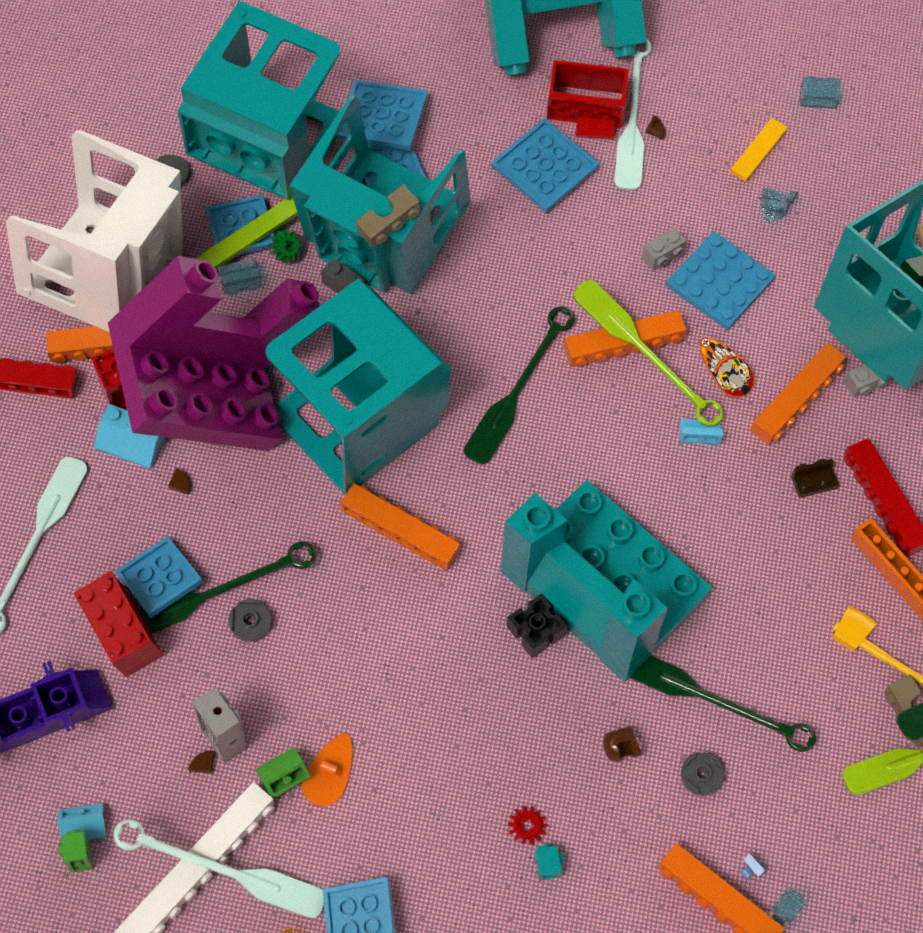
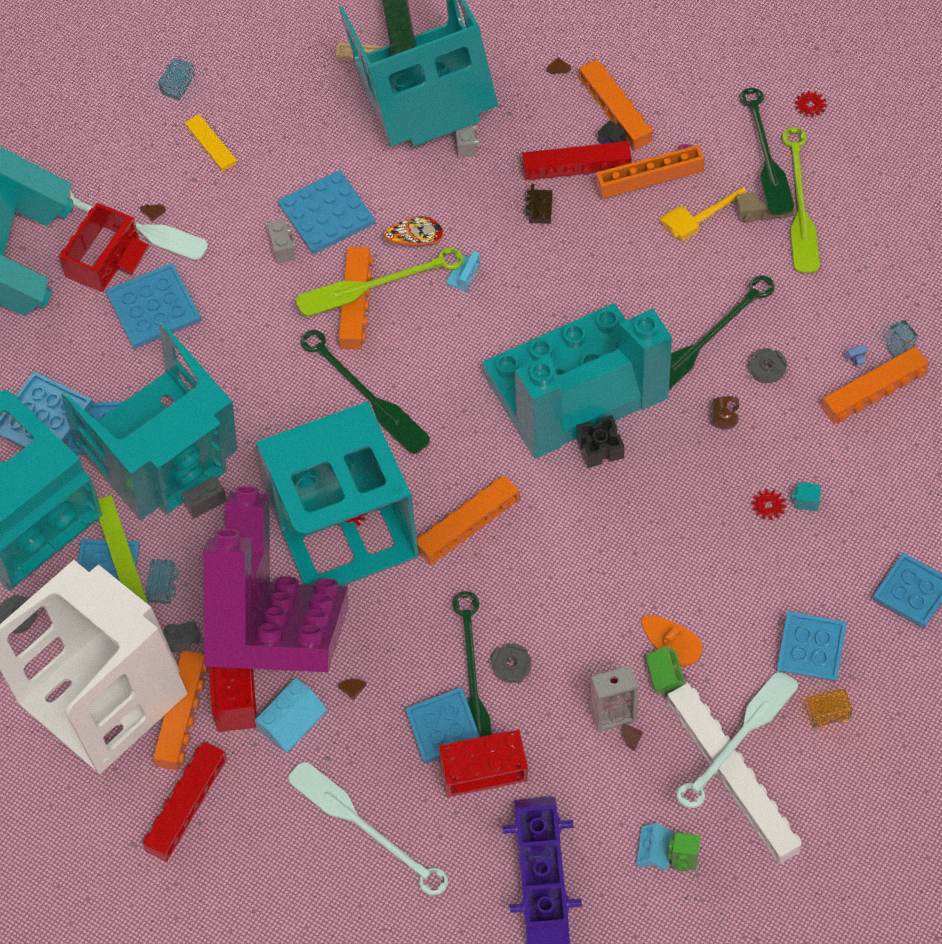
camera: 65 degrees left, 5 degrees down
(290, 251) = (147, 533): green gear -> none
(377, 228) = (200, 384): dark tan arch -> none
(775, 203) = (272, 144): clear light blue helmet -> none
(798, 393) = (459, 190): orange brick -> none

